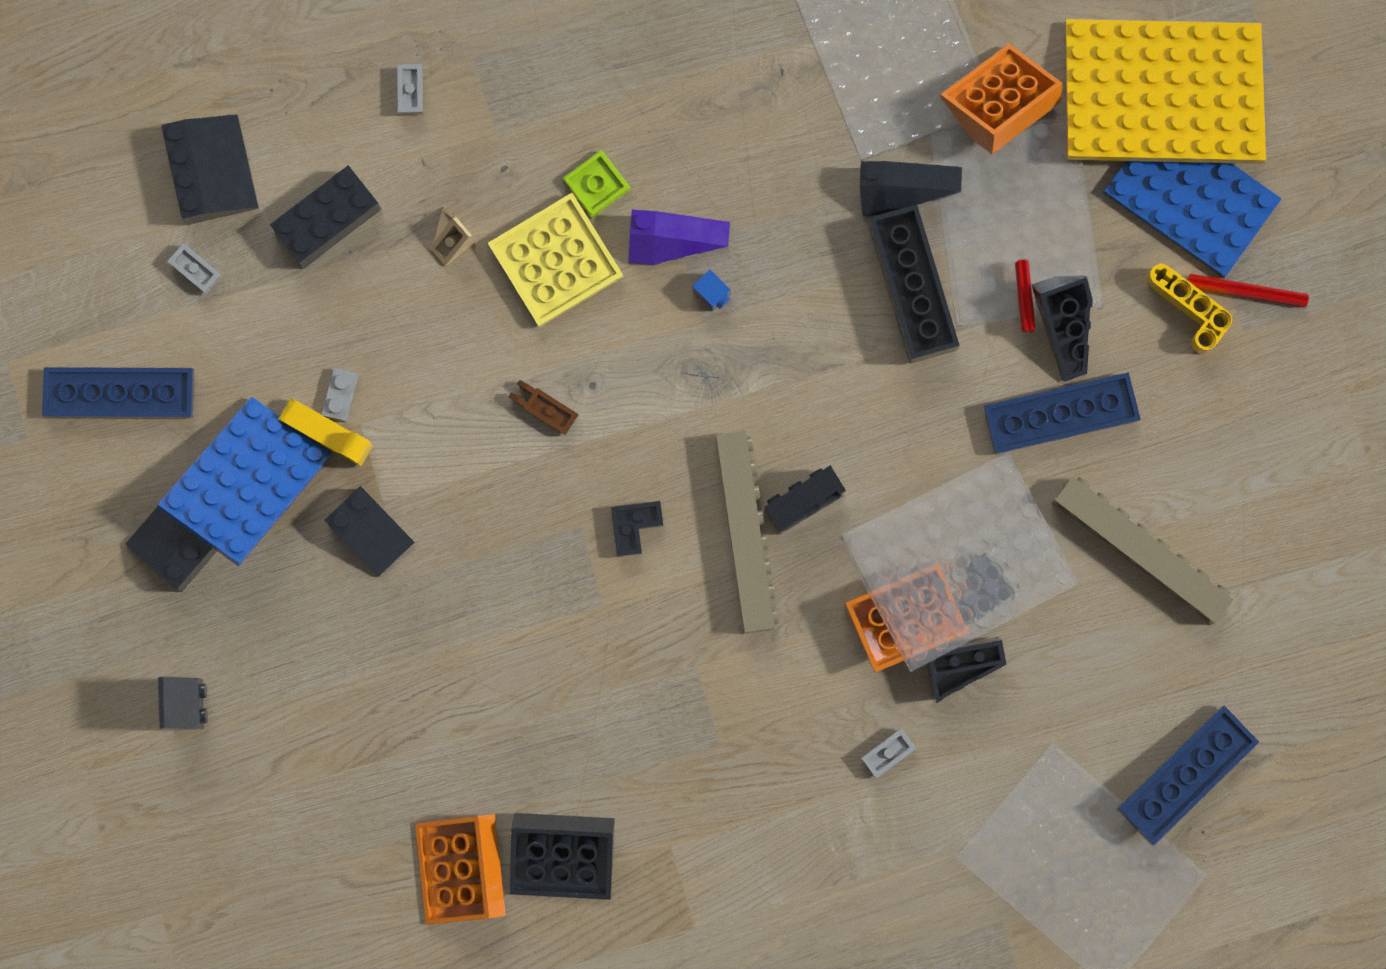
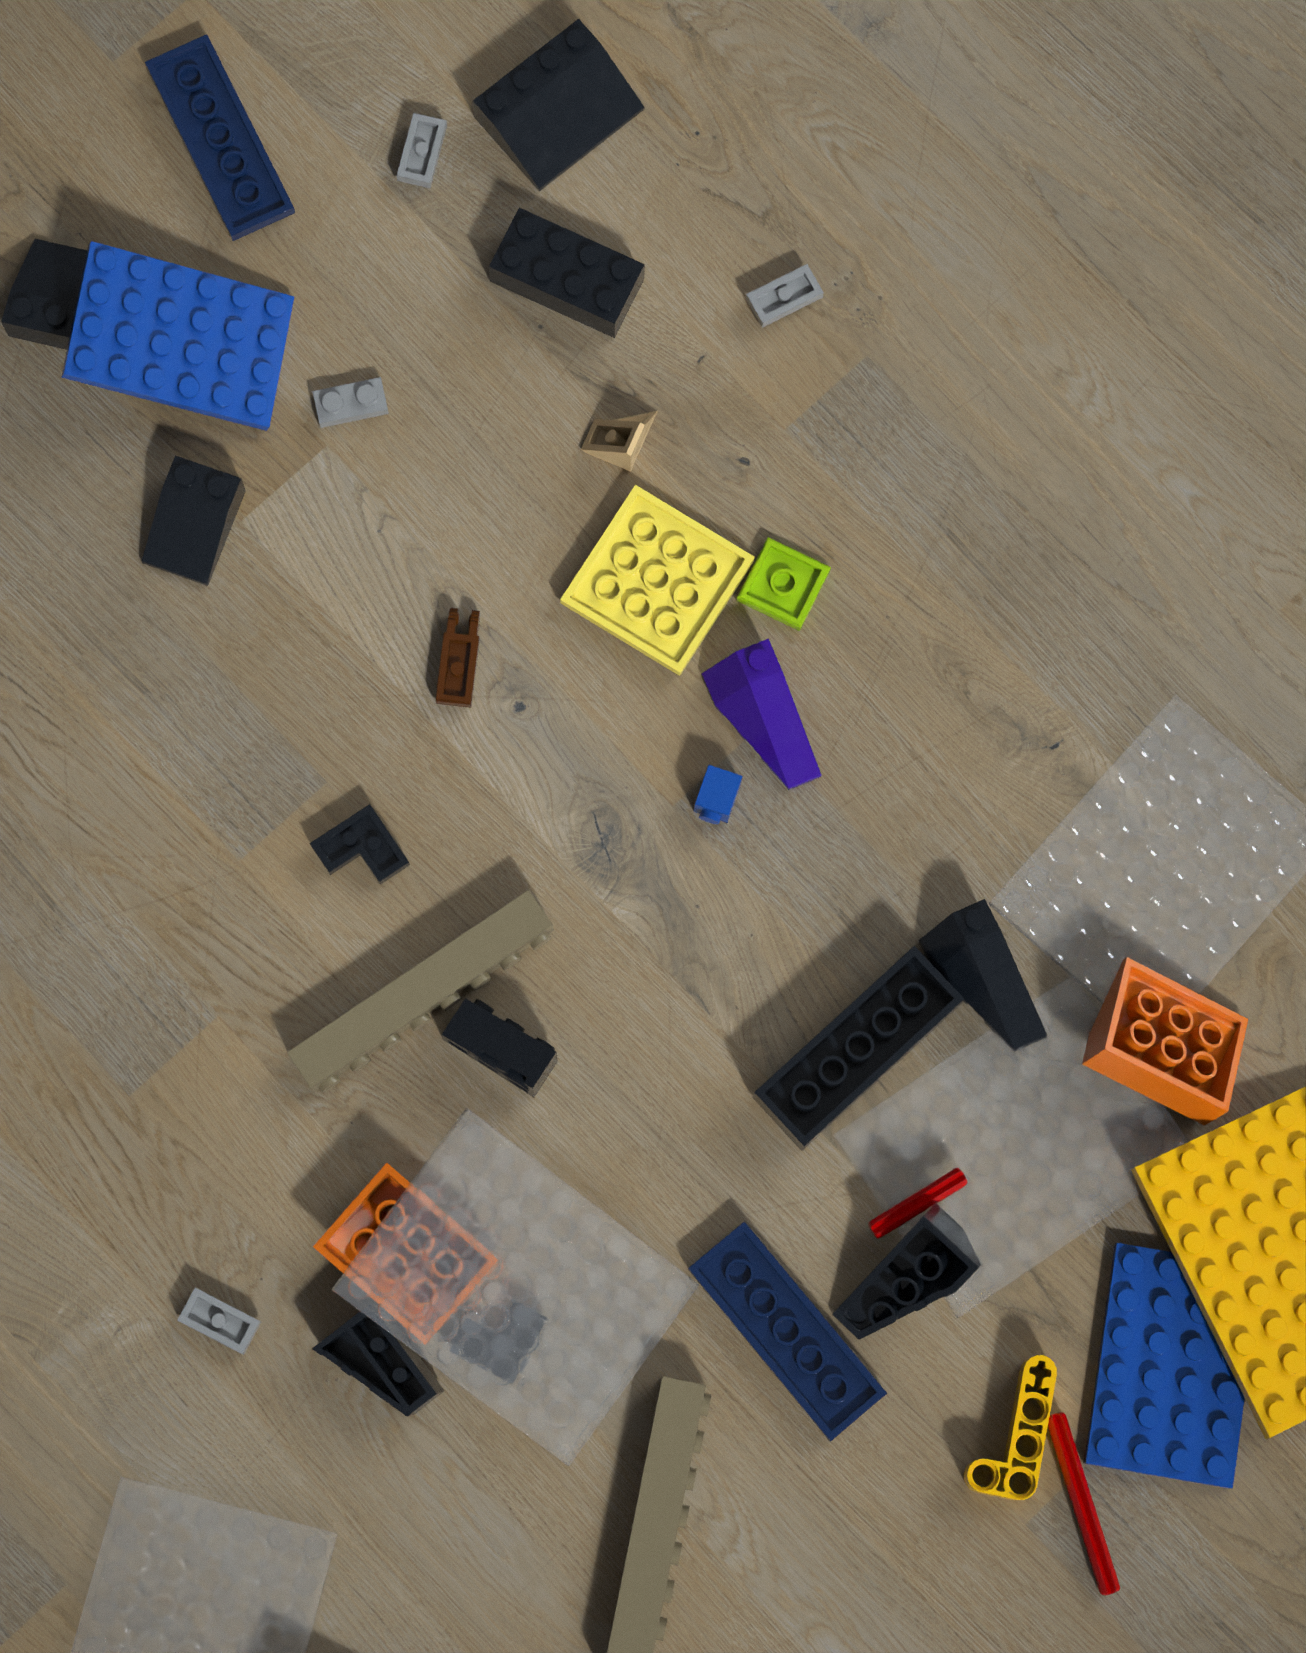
camera: 60 degrees right, 5 degrees down
(326, 432) = (292, 410): yellow beam -> none

